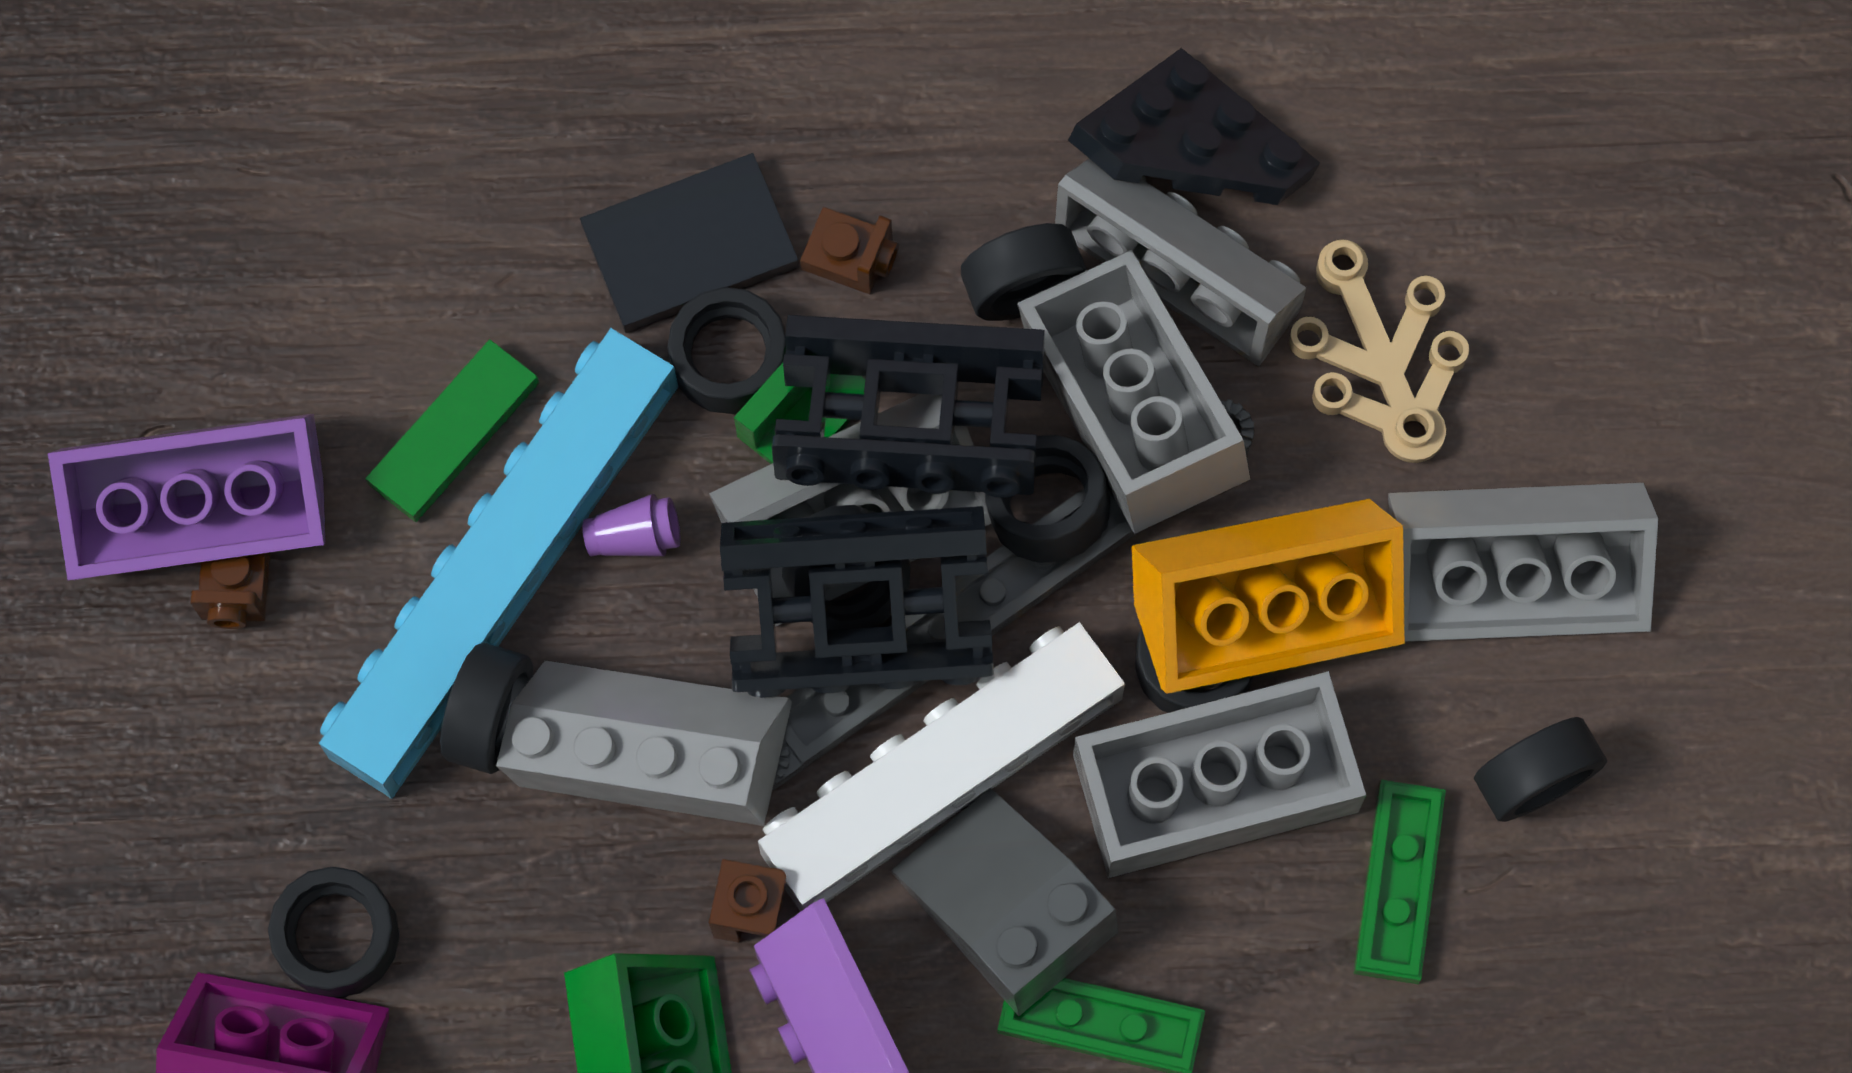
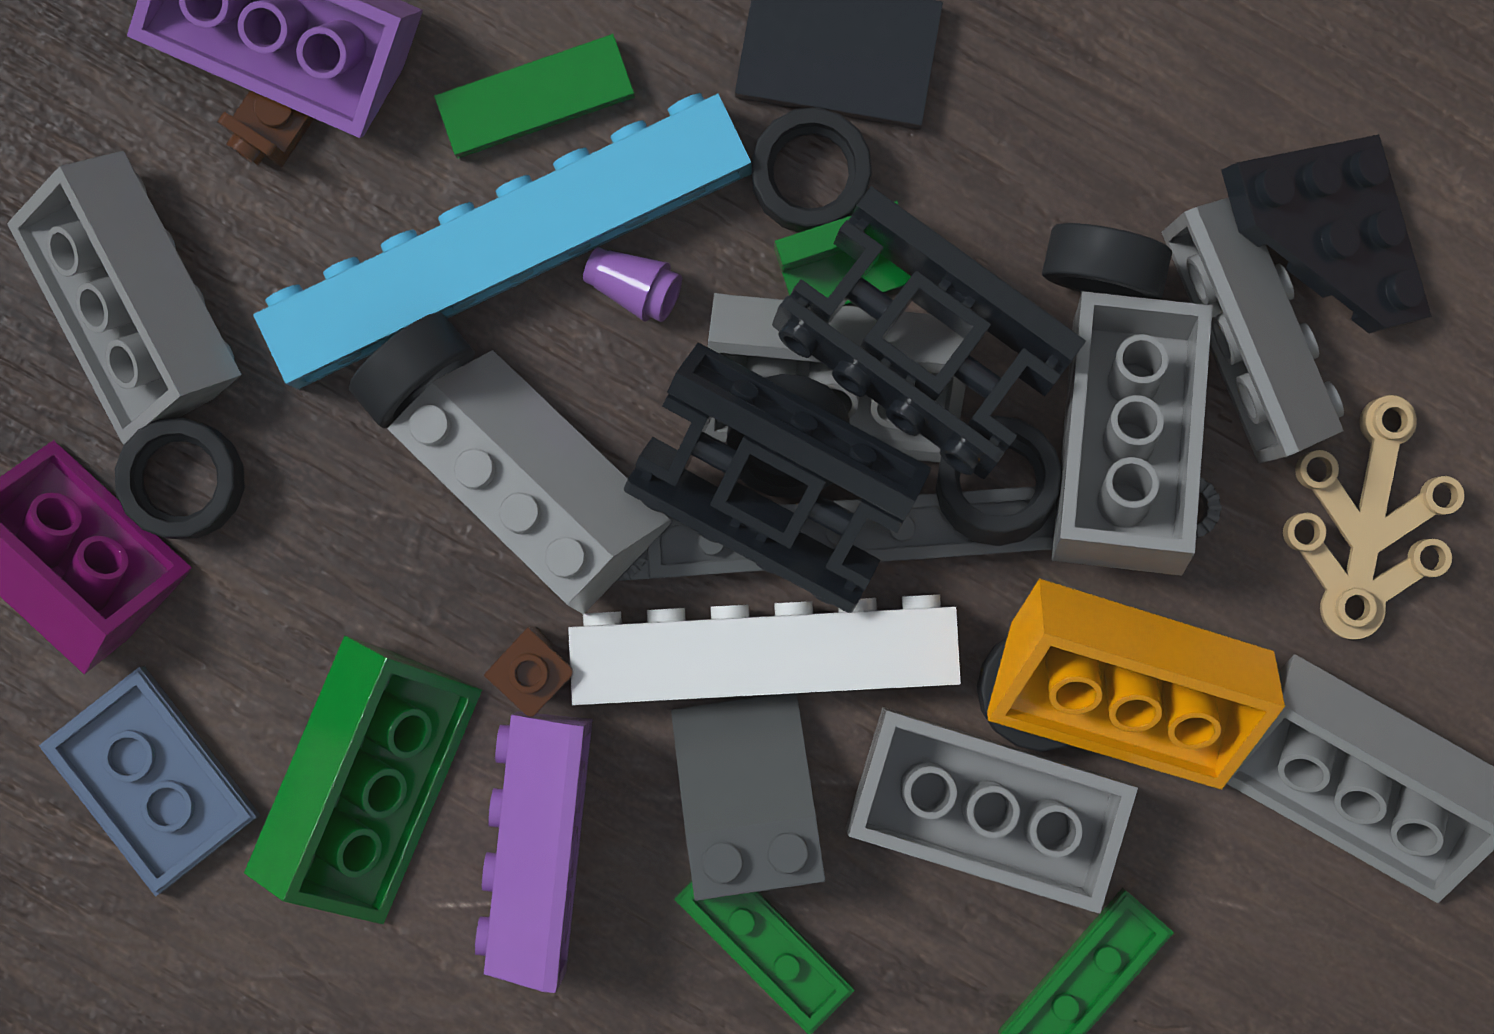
camera: 35 degrees right, 15 degrees up
(188, 805) = (122, 294): none -> light grey slope
(850, 250) = (972, 142): reddish brown bracket -> none
(1540, 769) = (1263, 976): black tyre -> none

